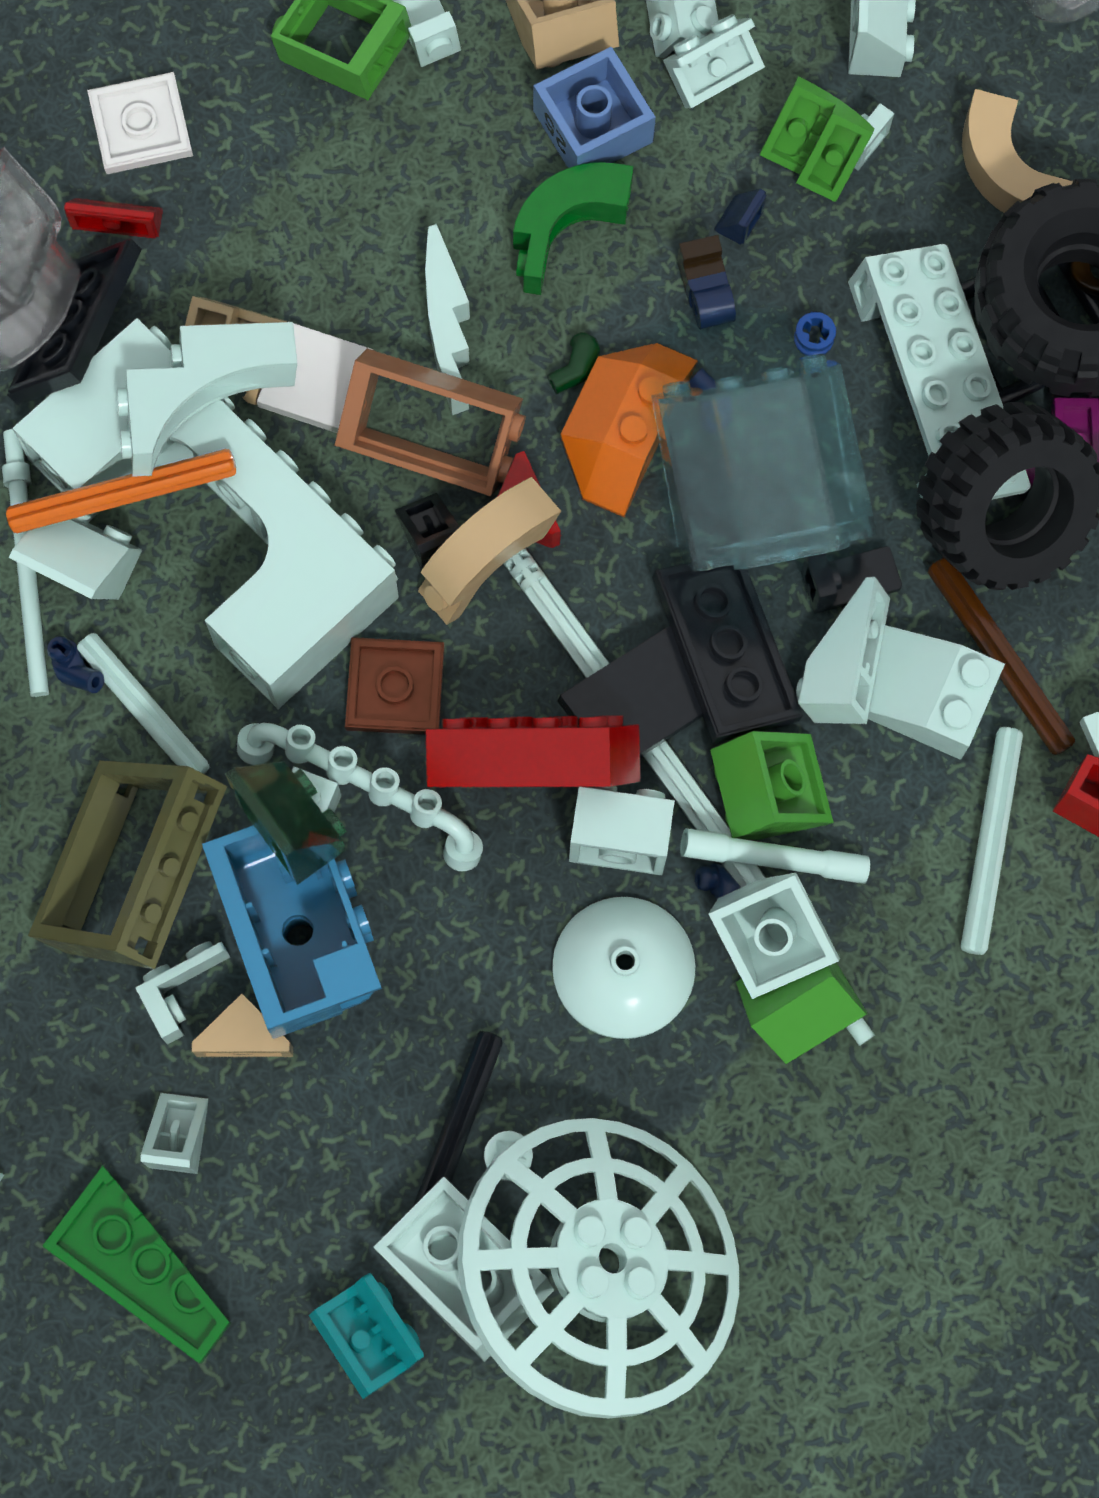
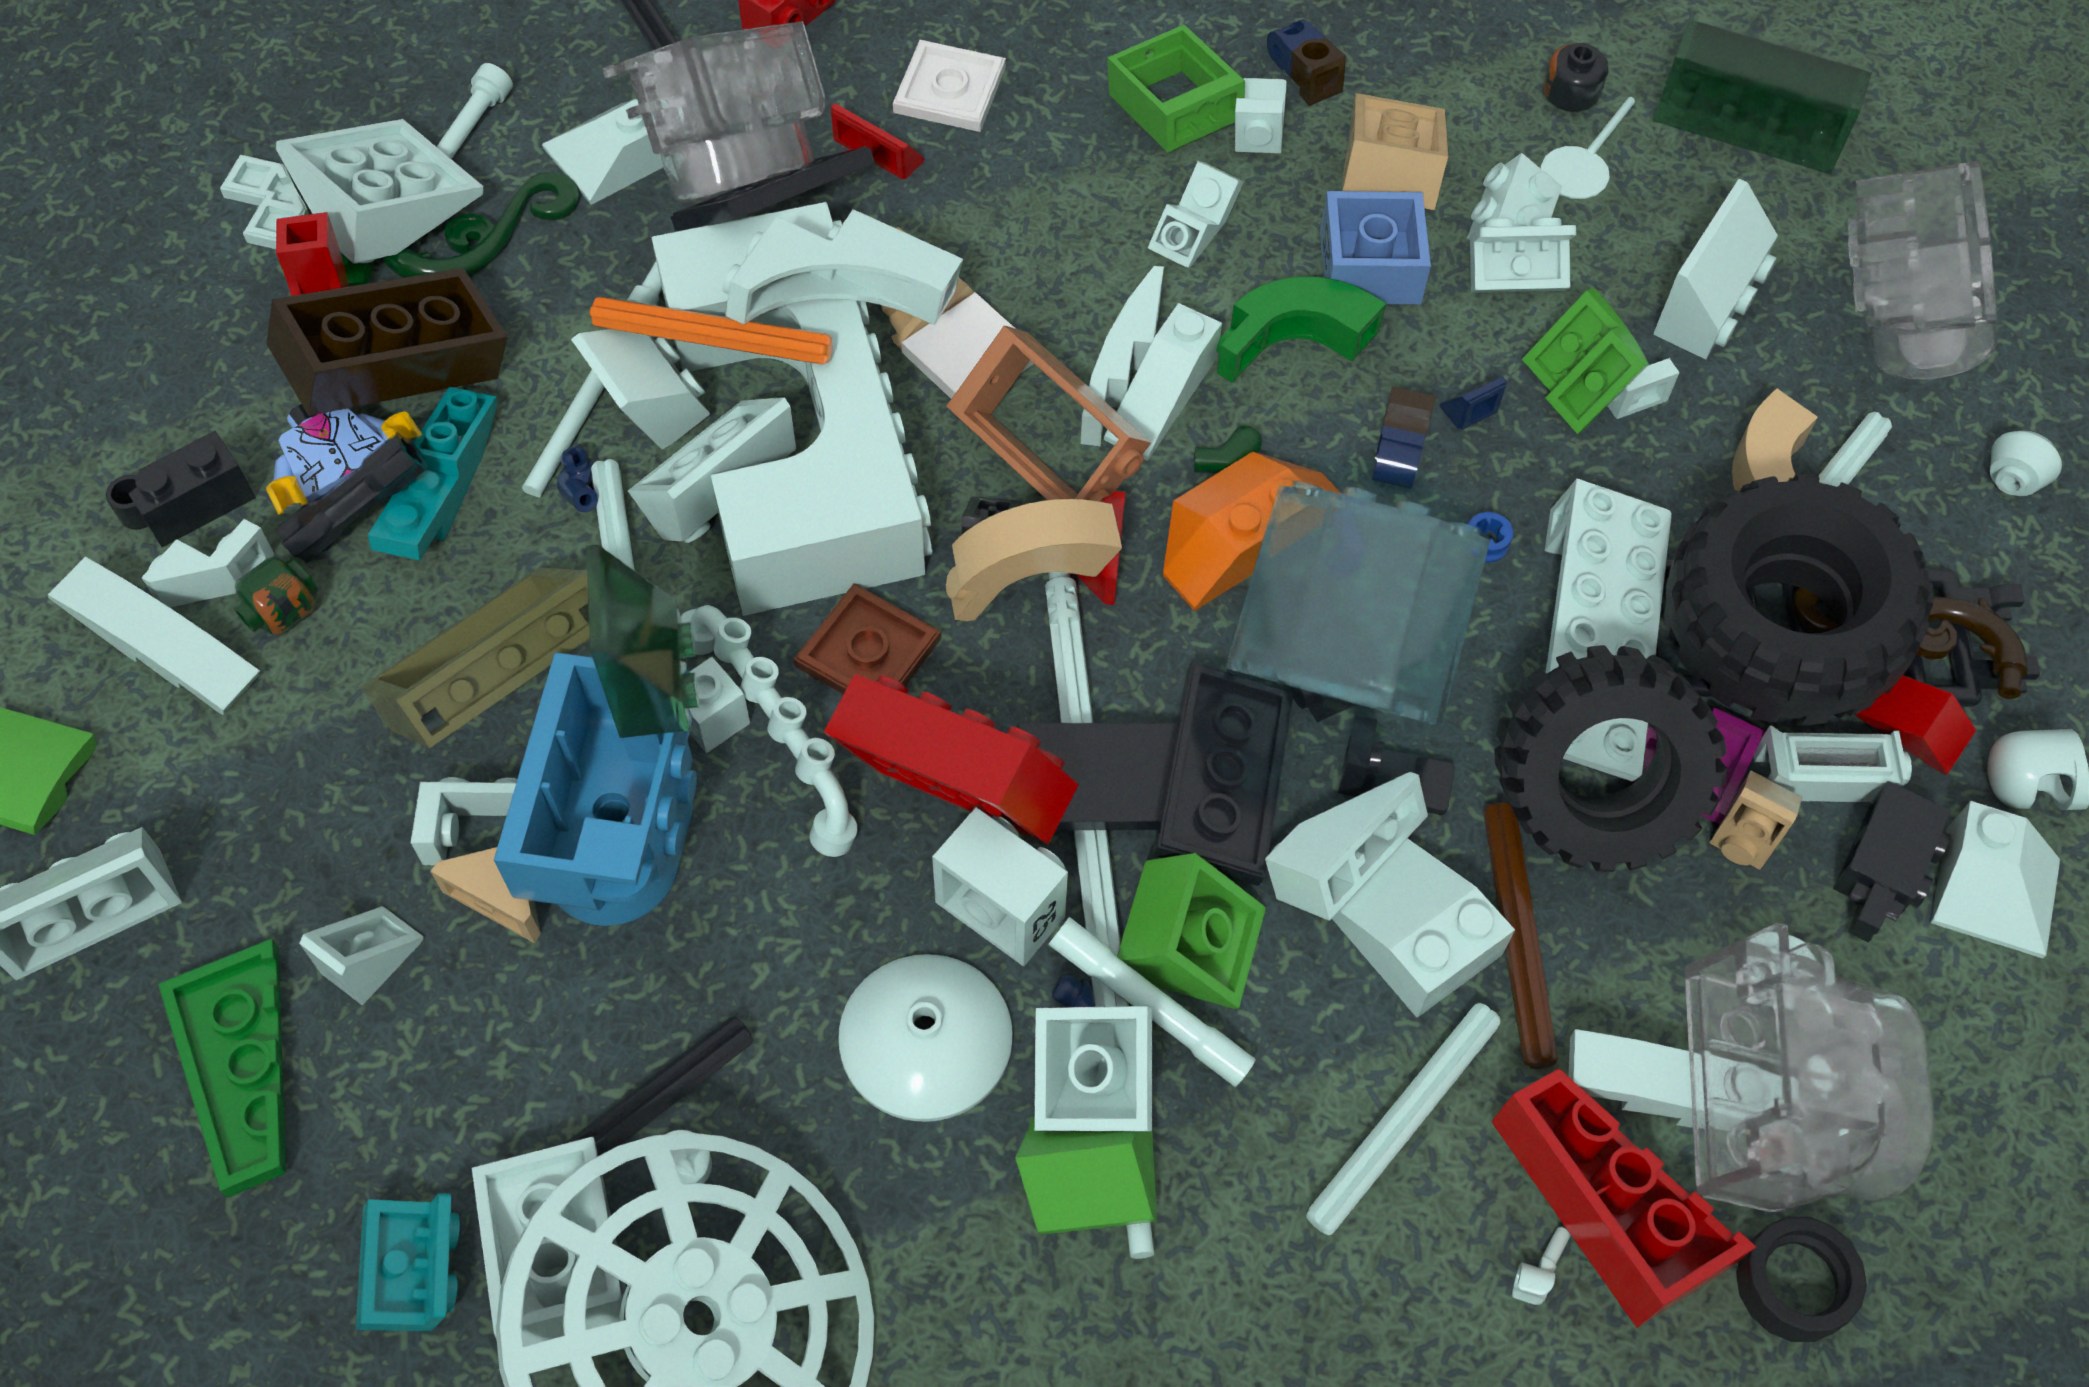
camera: 30 degrees right, 15 degrees down
(182, 594) = (680, 491): none -> light aqua slope
(426, 151) = (1203, 210): none -> light aqua slope
(492, 321) = (1169, 374): none -> light aqua slope
(1053, 120) = (1856, 450): none -> light aqua axle

